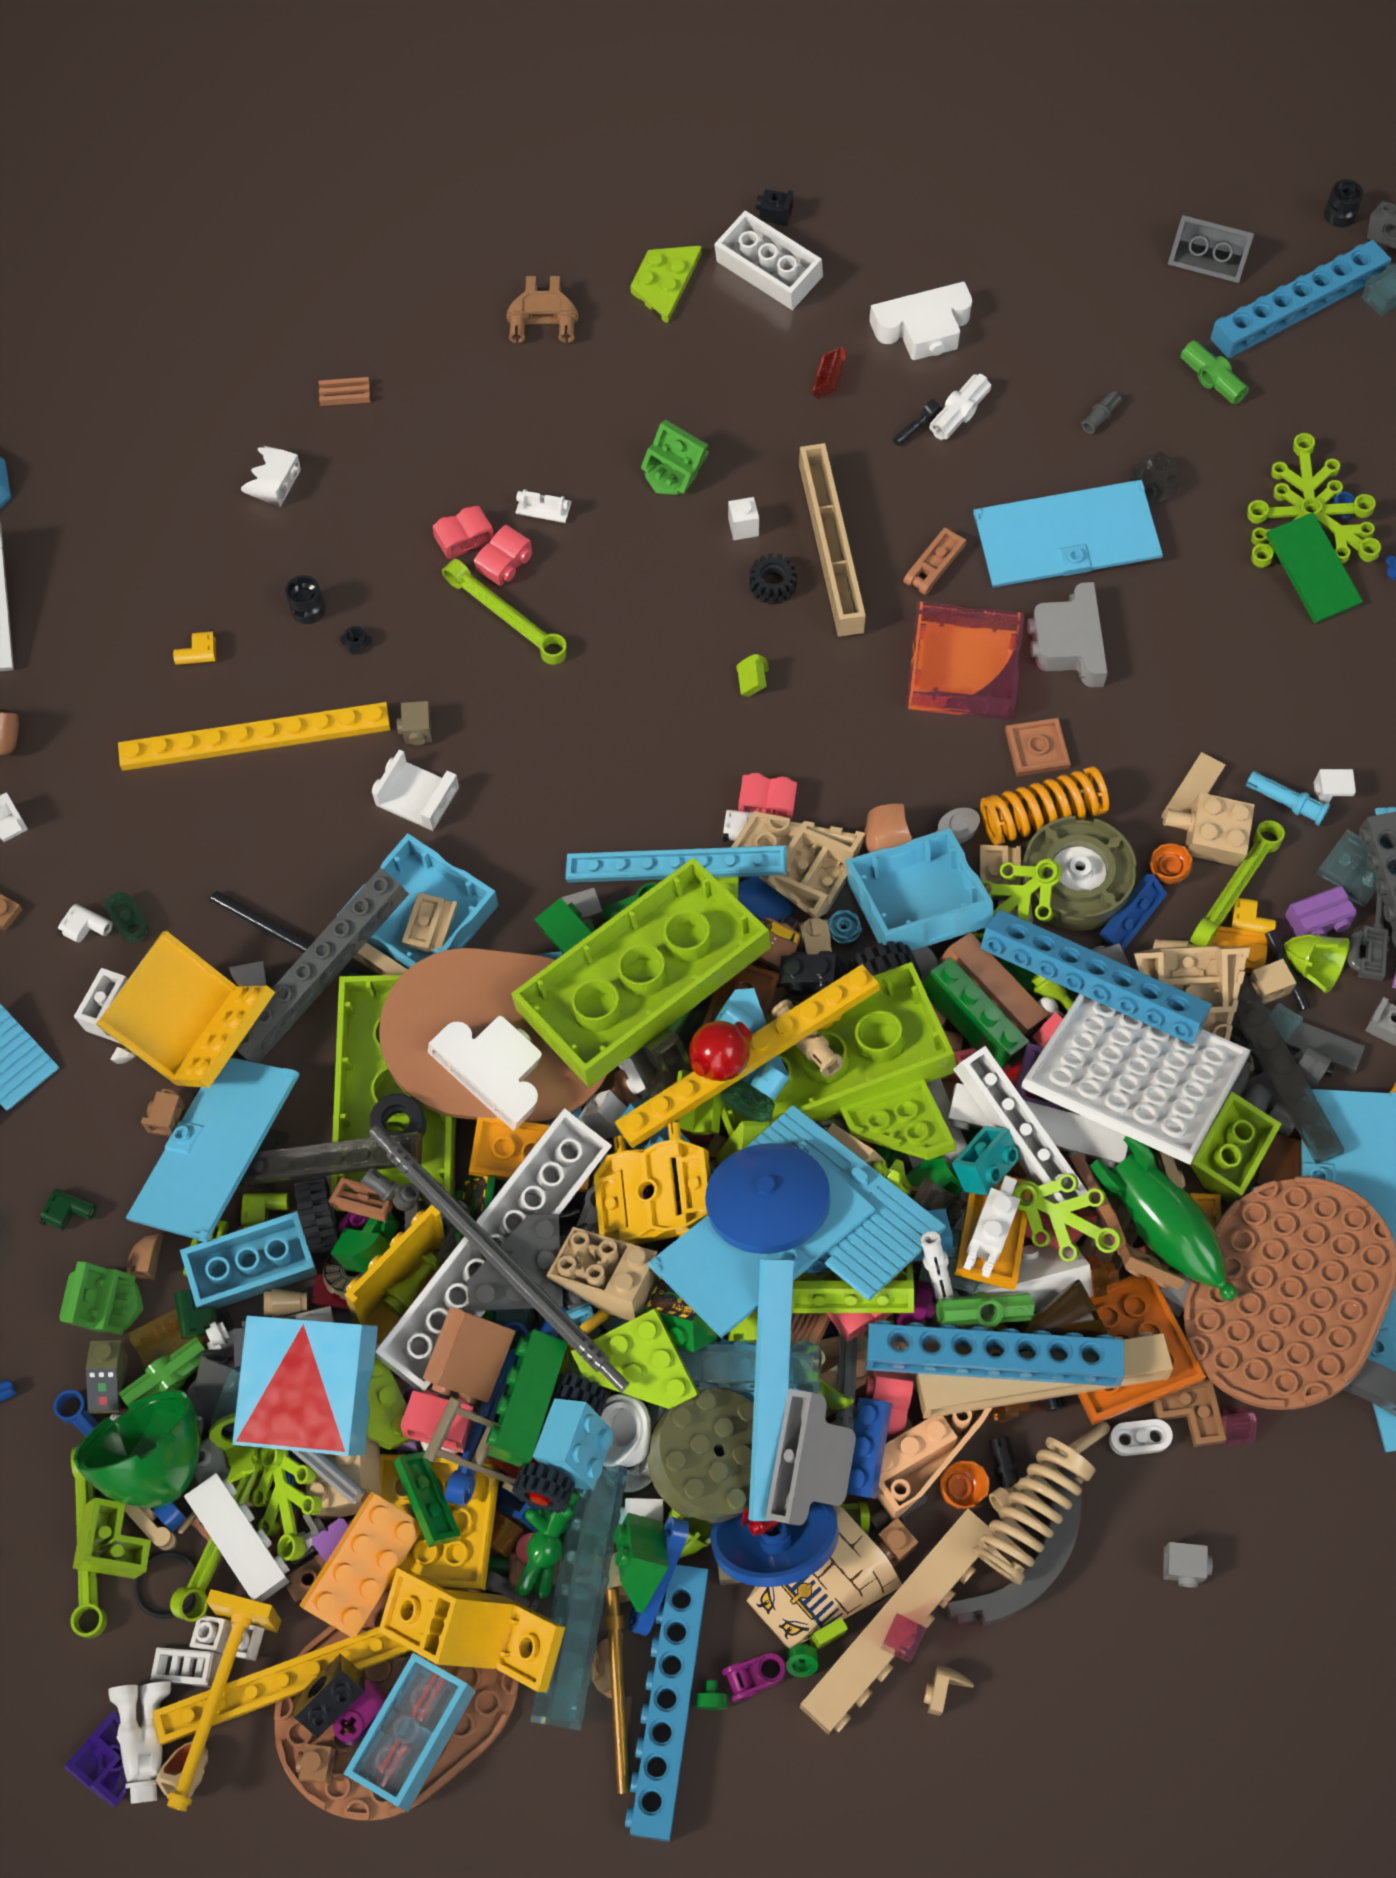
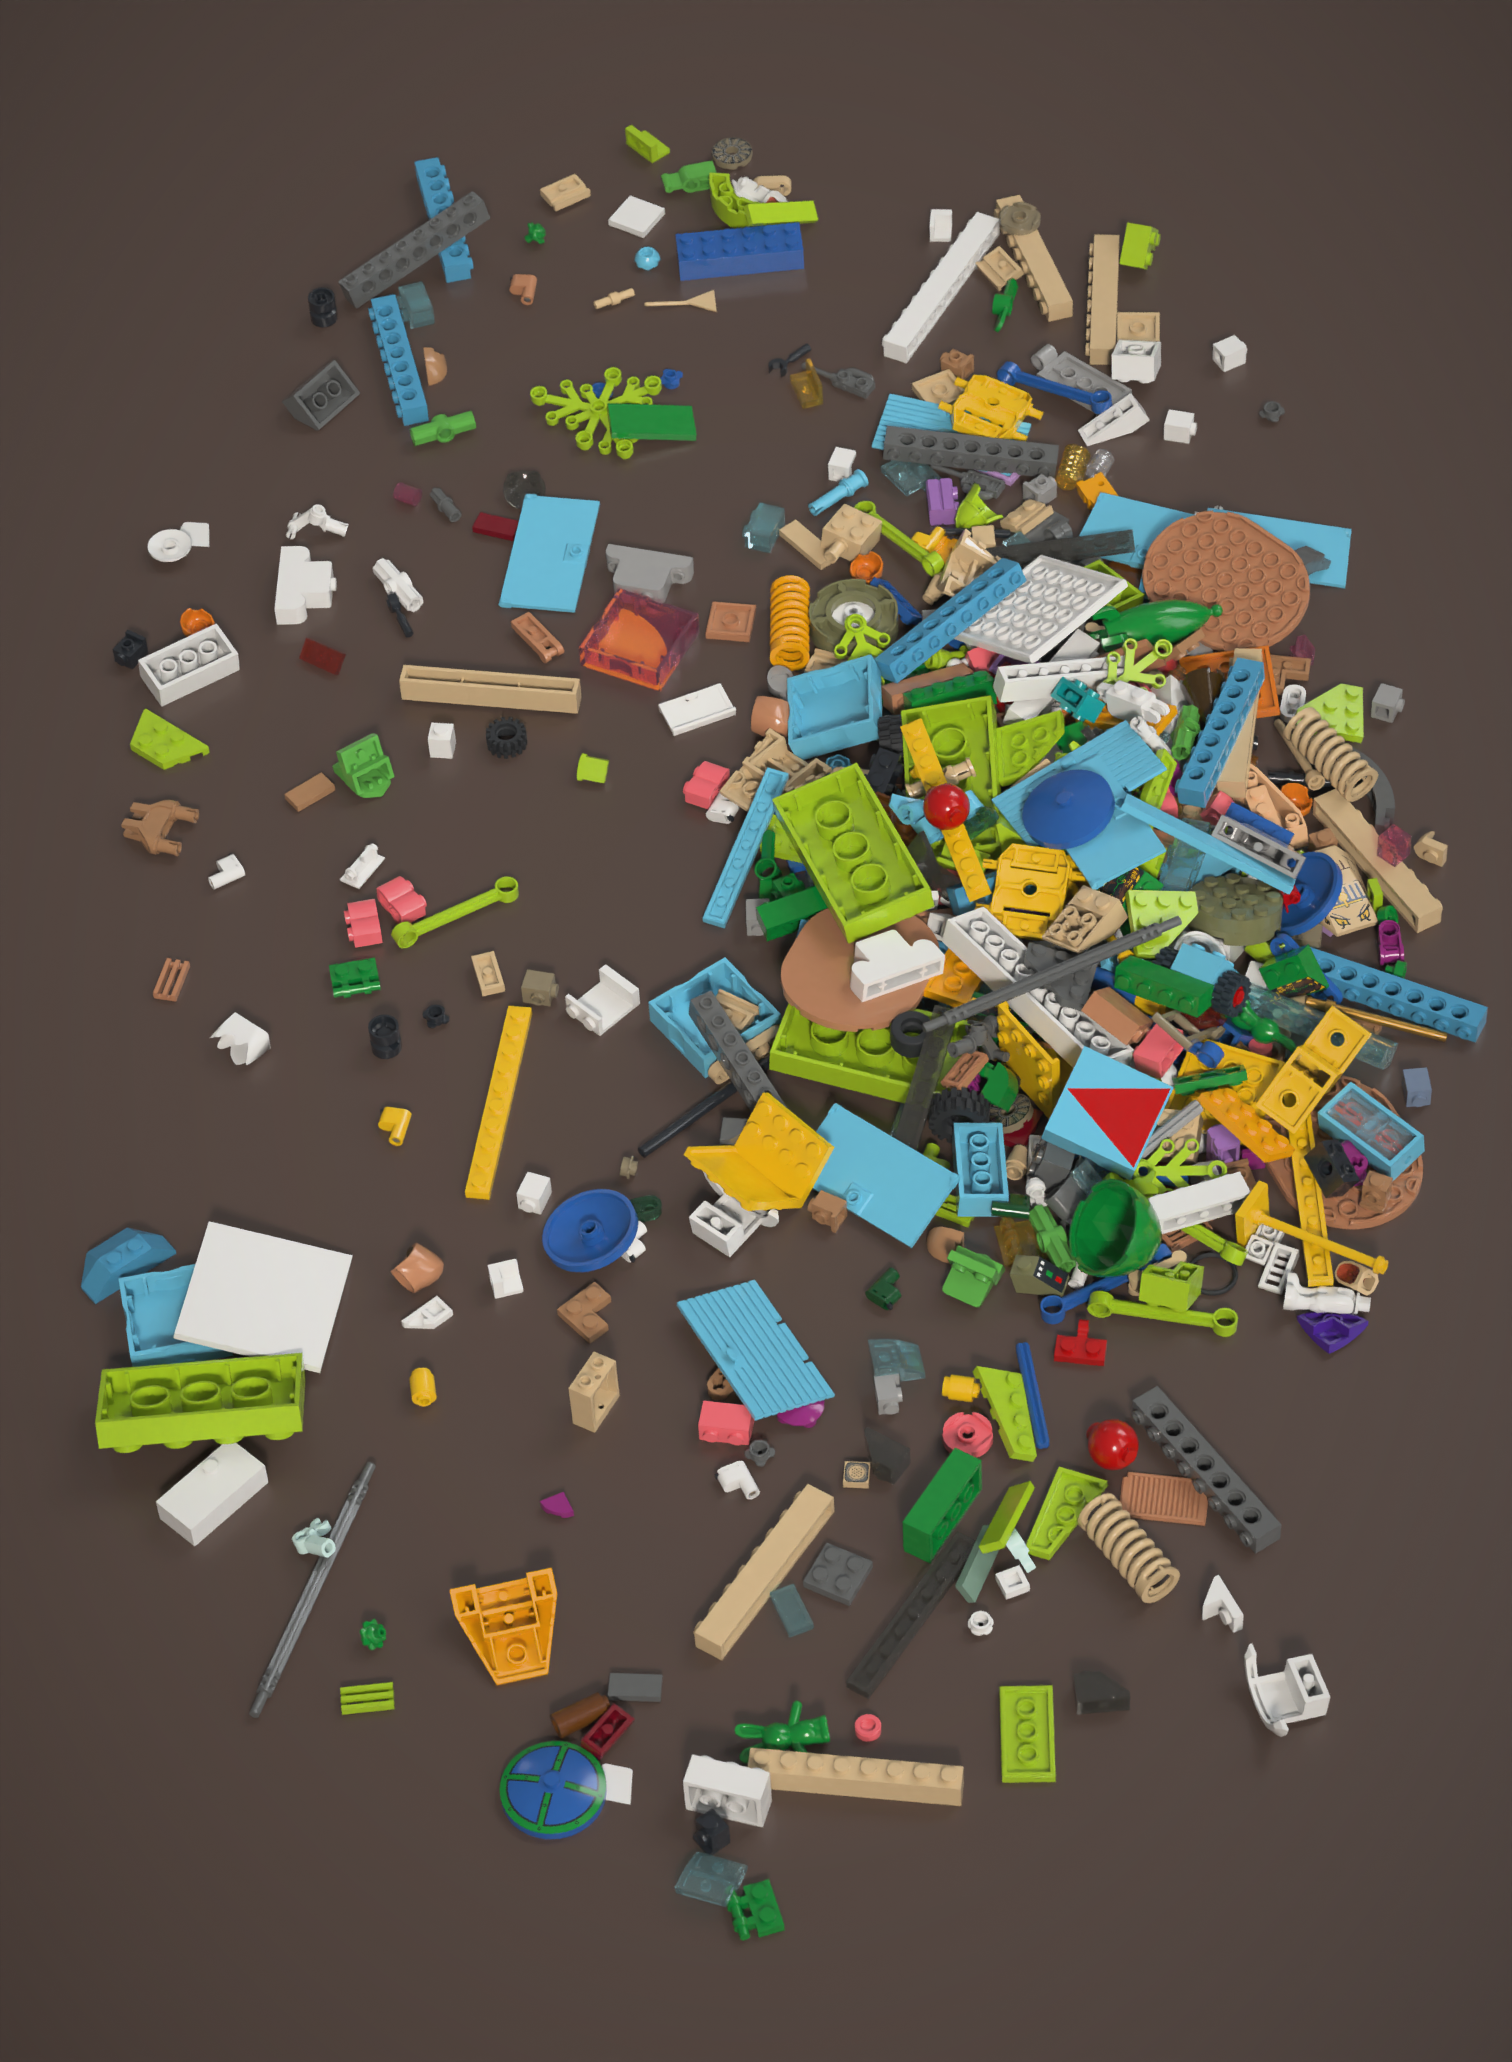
camera: 70 degrees left, 15 degrees down
(20, 1456) = (1080, 1348): none -> red plate
(77, 877) = (590, 1230): none -> blue dish
(126, 807) = (534, 1193): none -> white brick
(186, 889) = (628, 1167): none -> dark tan plate
(395, 544) = (354, 977): none -> green plate
(426, 668) = (488, 973): none -> tan plate
(503, 392) = (229, 869): none -> white piece
(517, 1774) = (1416, 1087): none -> sand blue brick
(635, 425) = (309, 792): none -> medium nougat tile
(830, 247) = (195, 621): none -> orange hair
(880, 750) = (700, 710): none -> white door
(935, 189) = (169, 545): none -> white dish
(967, 207) = (197, 532): none -> white sticker
(1021, 297) = (317, 517): none -> white pin
(1089, 468) = (495, 526): none -> dark red tile
(1100, 372) = (407, 494): none -> clear pink piece
(1140, 1498) = (1342, 710): none -> lime plate
(1195, 734) = (764, 527): none -> clear light blue brick
(1308, 334) = (435, 366): none -> medium nougat brick
(1338, 1020) = (1026, 516): none -> tan plate

